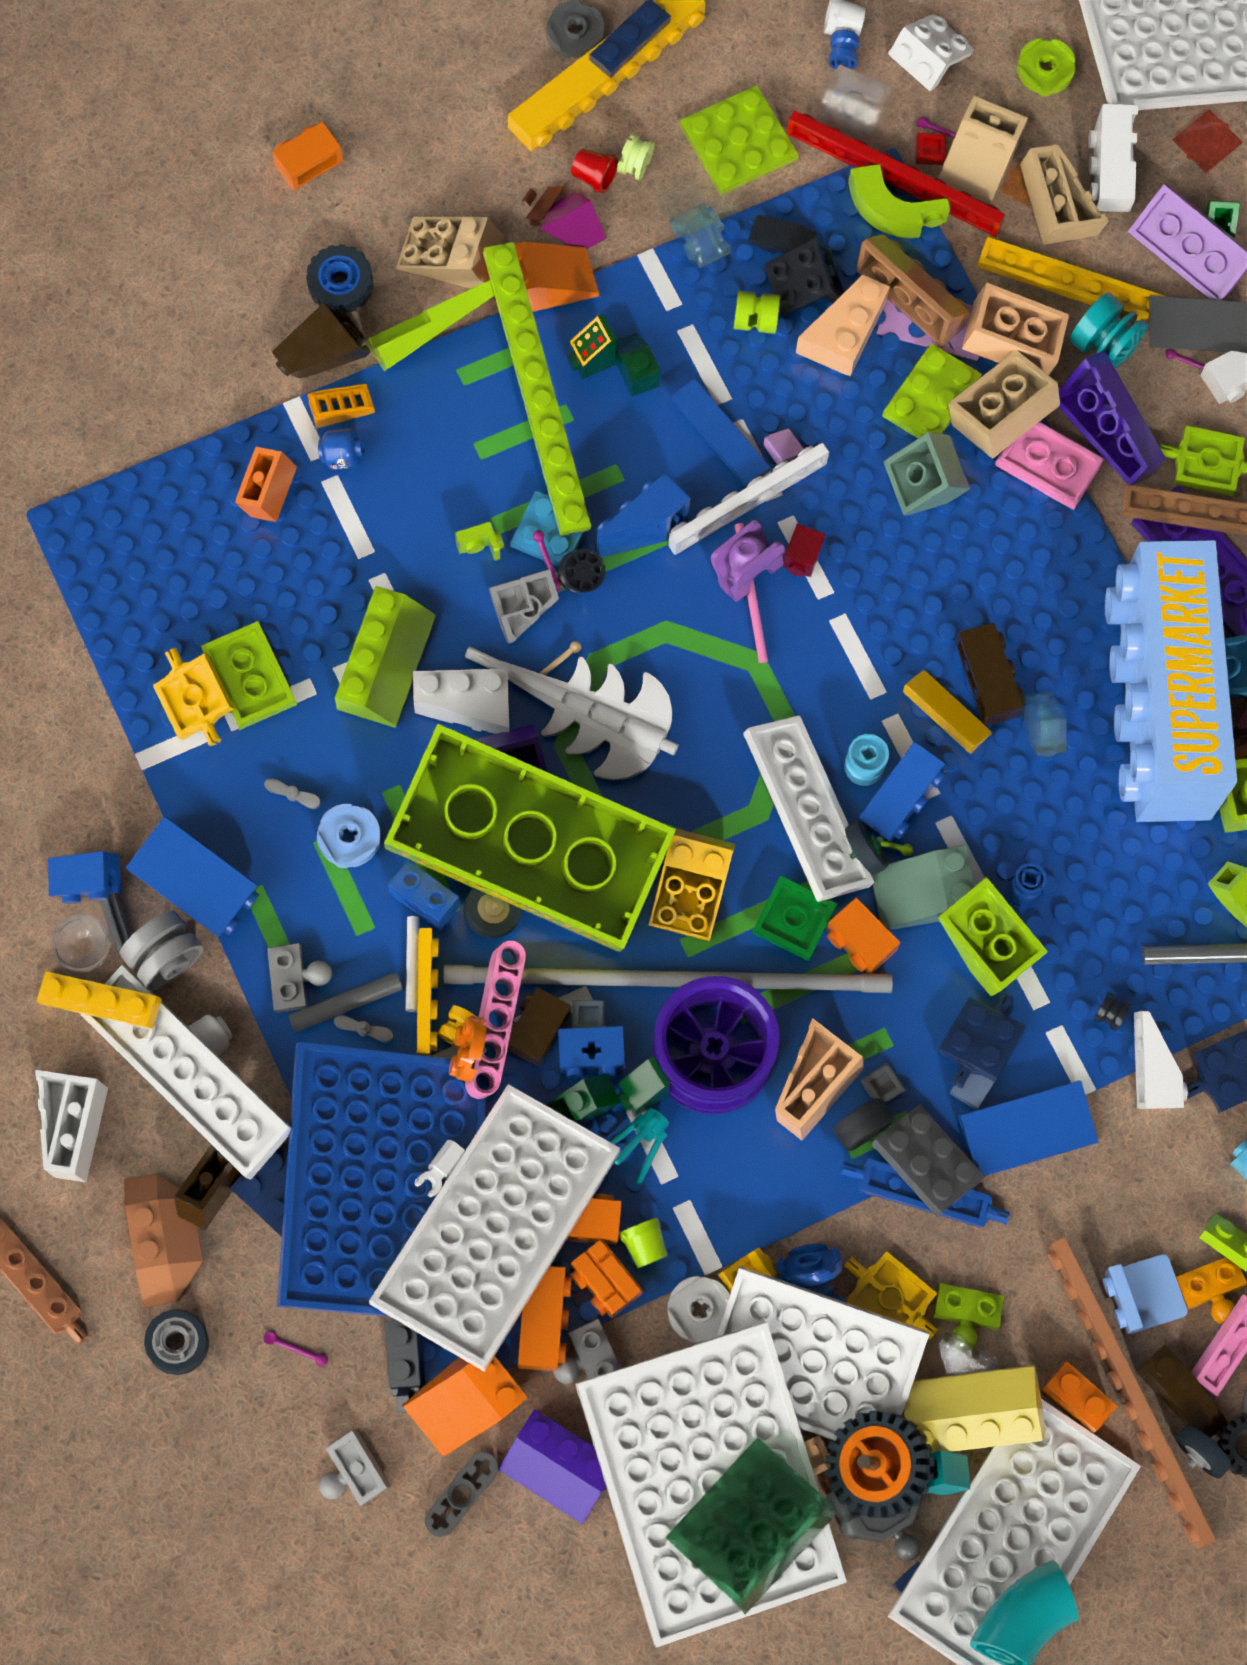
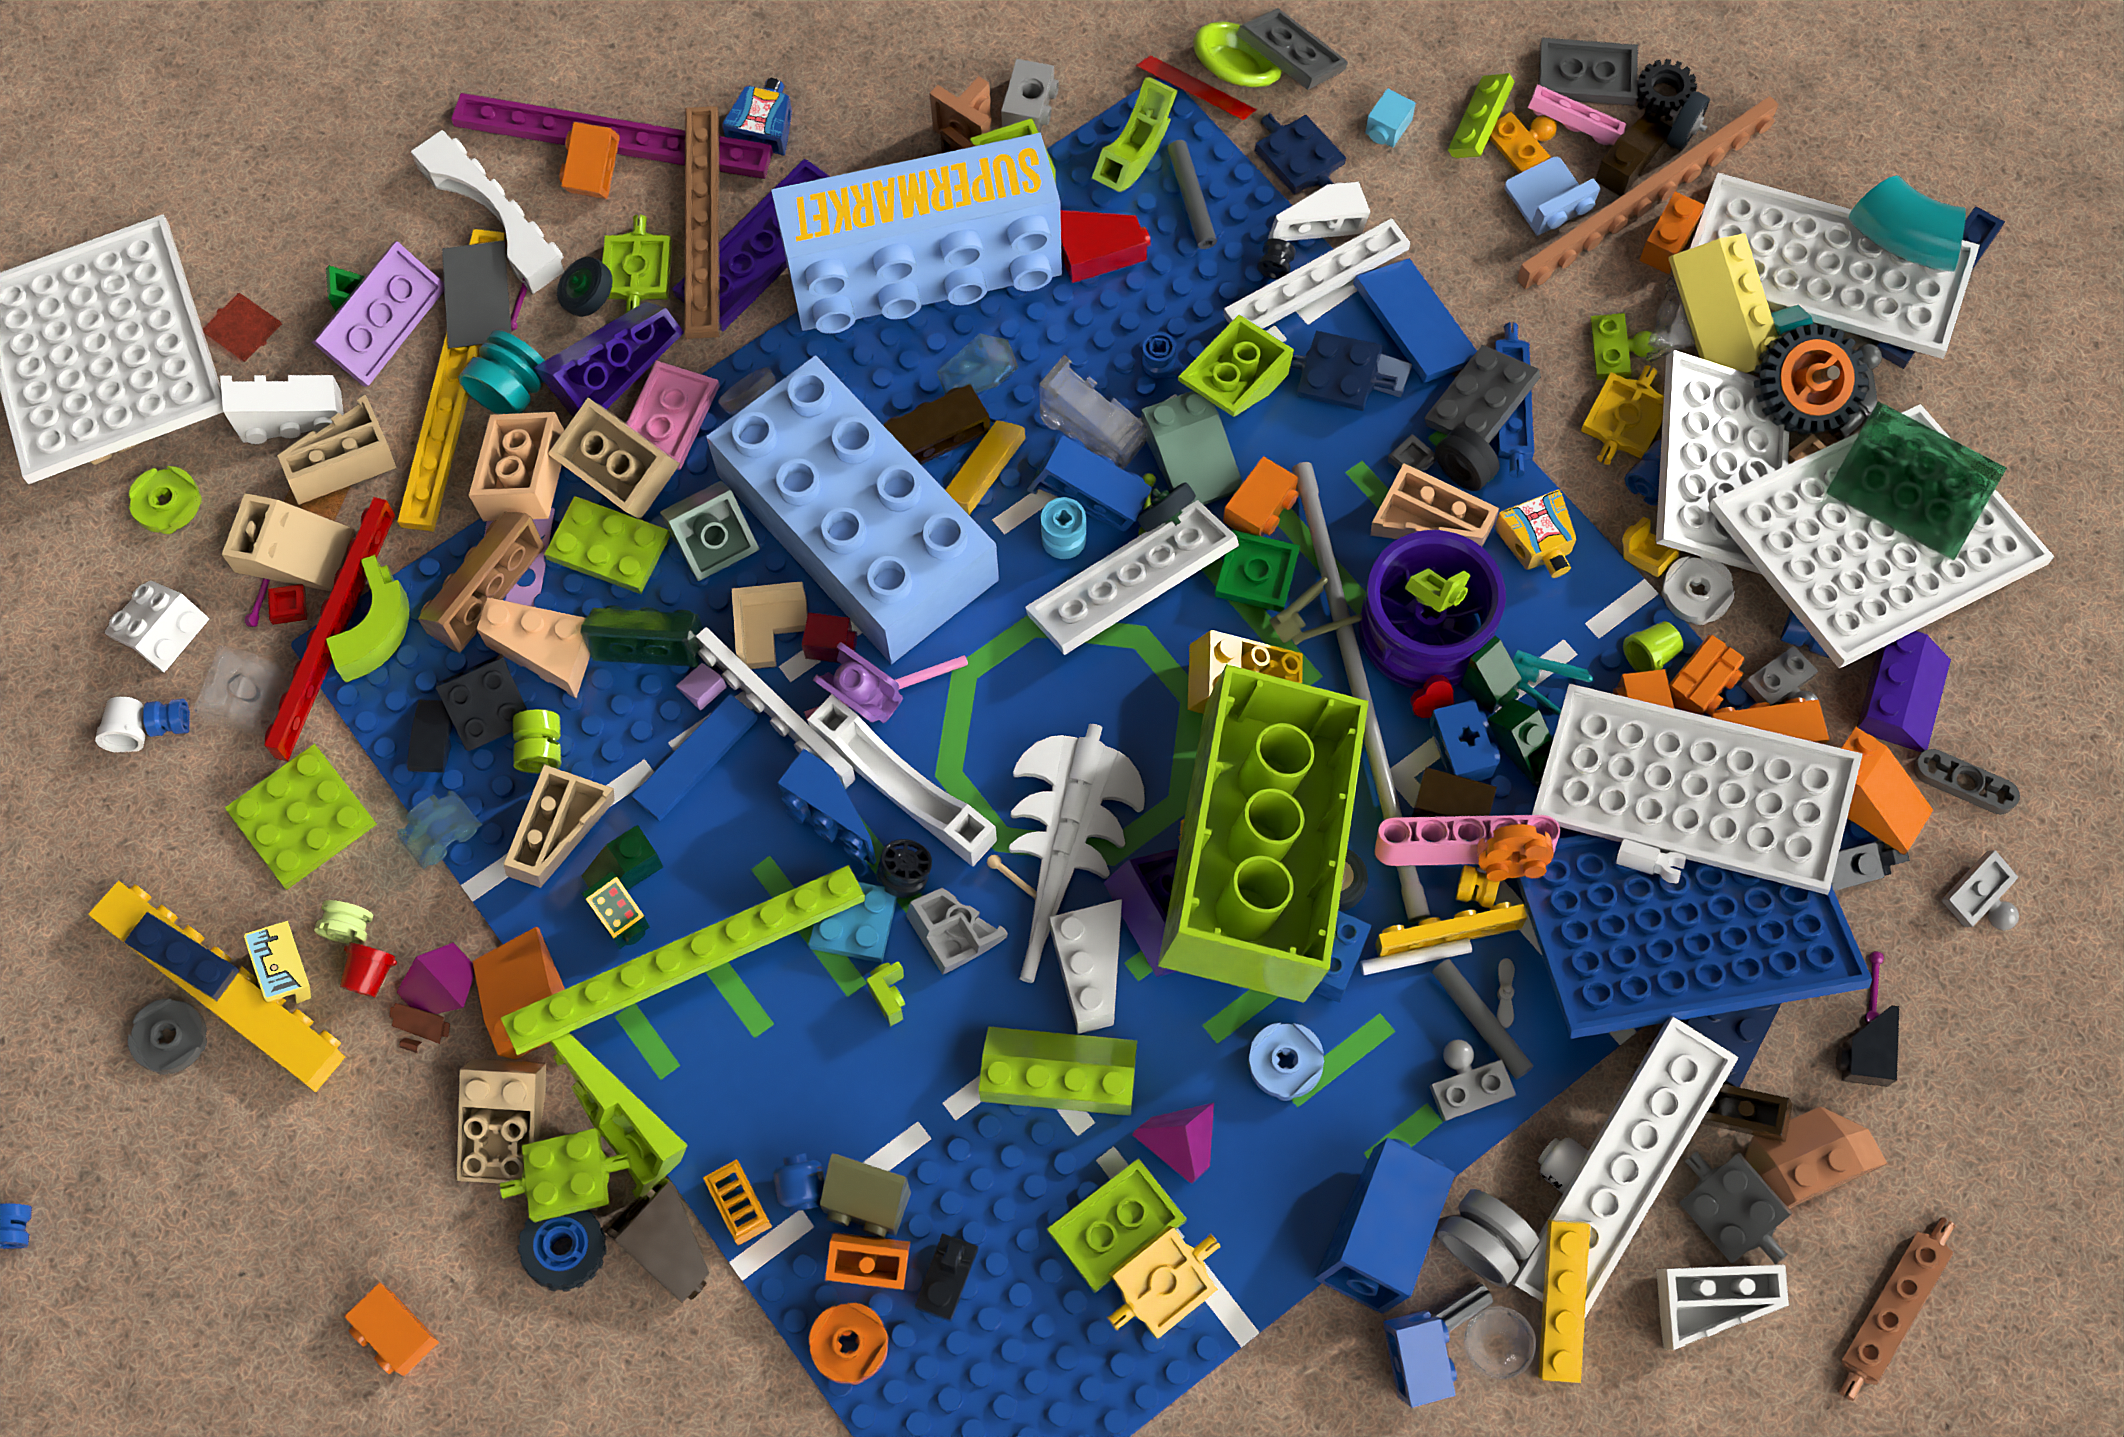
camera: 95 degrees left, 5 degrees down
(137, 1162) = (1735, 1208): none -> dark grey plate
(171, 1324) = (1935, 1102): wheel -> none
(210, 481) = (826, 1348): none -> orange plate
(238, 1320) = (1872, 1052): none -> black slope
(243, 545) = (946, 1277): none -> black hinge
(292, 793) = (1249, 1140): light grey piece -> none
(304, 738) = (1181, 1139): none -> magenta slope
(317, 492) = (864, 1196): none -> olive slope
(389, 283) = (565, 1175): none -> lime plate
(538, 536) = (872, 921): magenta hinge -> none
(587, 1013) = (1422, 754): sand blue tile -> none
(612, 107) = (277, 963): none -> panel
(624, 608) = (937, 811): none -> white arch
(638, 1037) = (1434, 695): none -> red tile
(679, 312) = (554, 823): none -> tan wedge
(720, 1038) = (1436, 591): none -> lime bracket
(738, 934) = (1289, 622): none -> olive plant
(779, 1174) = (1539, 533): none -> torso
(810, 1265) = (1625, 487): blue tile -> none
(830, 496) = (762, 613): none -> tan panel
(837, 403) = (642, 636): none -> clear green slope
(914, 584) = (854, 508): none -> light blue brick
(973, 805) = (1084, 414): none -> clear wedge
(1052, 525) = (747, 390): none -> clear piece
(1085, 1045) = (1321, 276): none -> white plate
(1157, 853) = (1100, 243): none -> red slope
(1193, 412) = (584, 286): none -> black wheel

